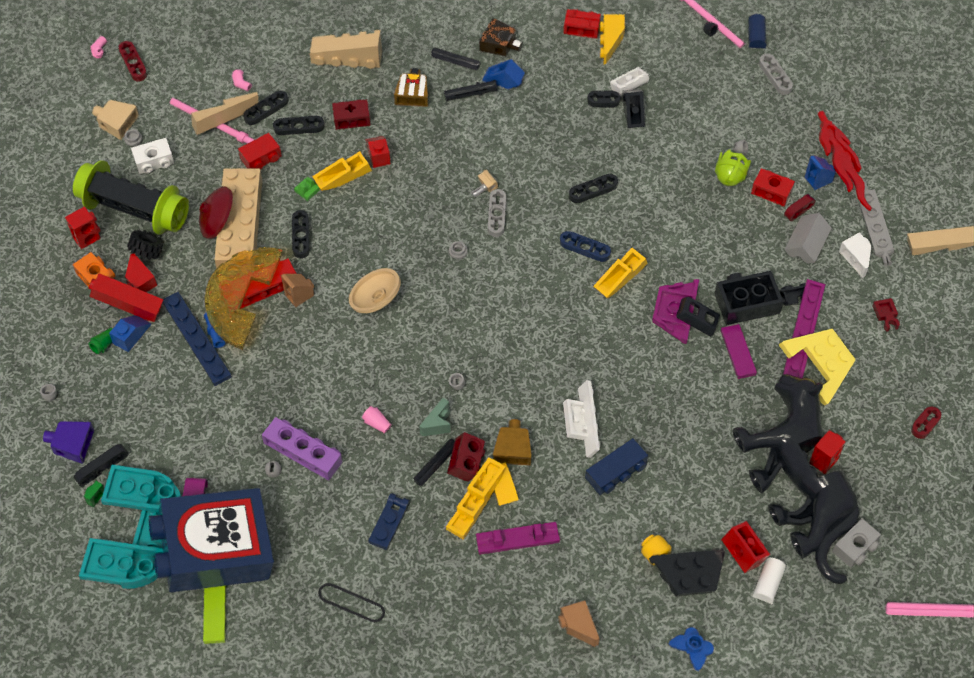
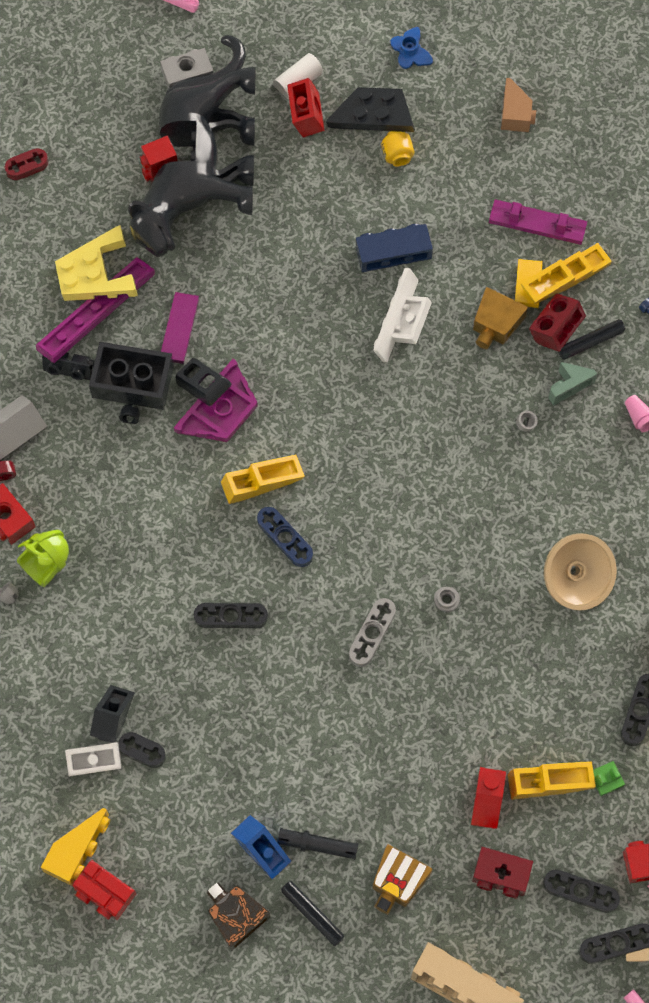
camera: 155 degrees left, 10 degrees up
(488, 183) = (363, 682): tan piece -> none

